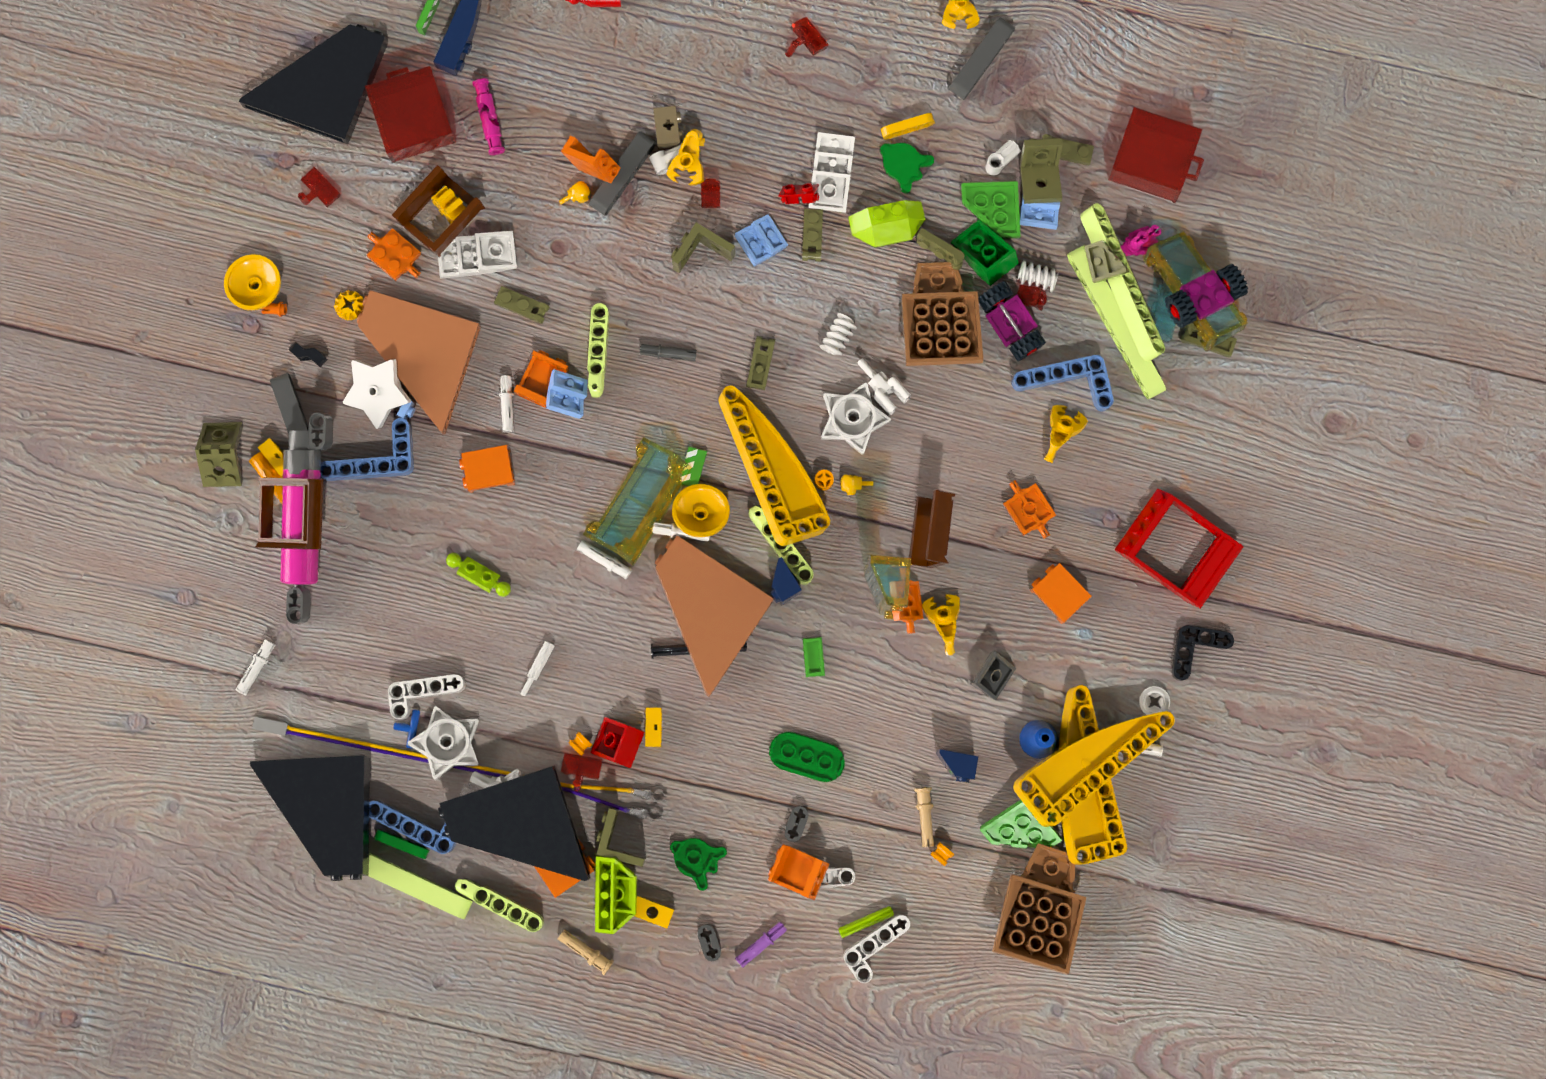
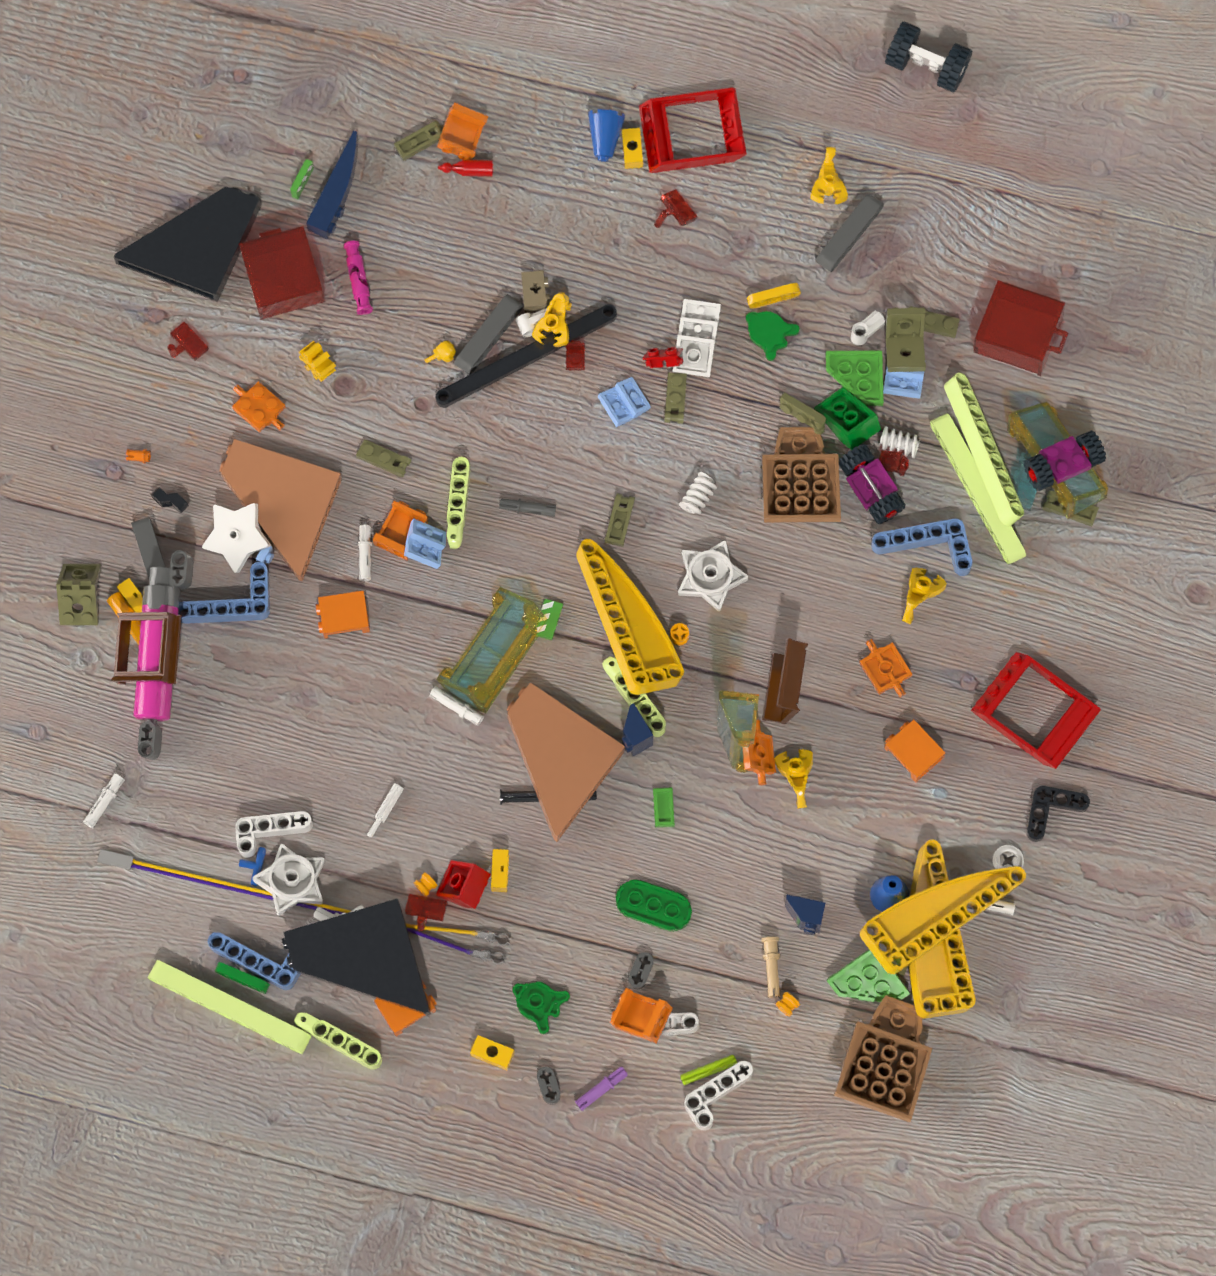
camera: 10 degrees right, 10 degrees down
(247, 272) = (116, 419): yellow dish -> none
(326, 807) = (169, 935): black slope -> none
(346, 313) = (210, 462): yellow gear -> none
(422, 195) = (289, 351): reddish brown piece -> none
(478, 255) = (340, 408): white slope -> none
(478, 574) = (330, 717): lime plate -> none
(592, 956) = (430, 1095): tan pin -> none
(599, 166) = (464, 325): orange panel -> none
(604, 838) = (455, 991): olive bracket -> none
(614, 895) = (454, 1029): lime wedge -> none
(658, 196) = (523, 357): none -> black piece
(673, 530) = (526, 678): white axle -> none
(700, 500) = (554, 651): yellow dish -> none
(705, 237) = (569, 396): olive bracket -> none
(852, 483) = (707, 638): yellow piece -> none
(884, 388) = (743, 545): white plant -> none
(887, 223) = (751, 387): lime wedge -> none
(993, 675) = (844, 829): dark grey slope -> none
(1103, 262) = (964, 428): wing -> none
(1139, 240) = (1000, 410): dark pink connector -> none

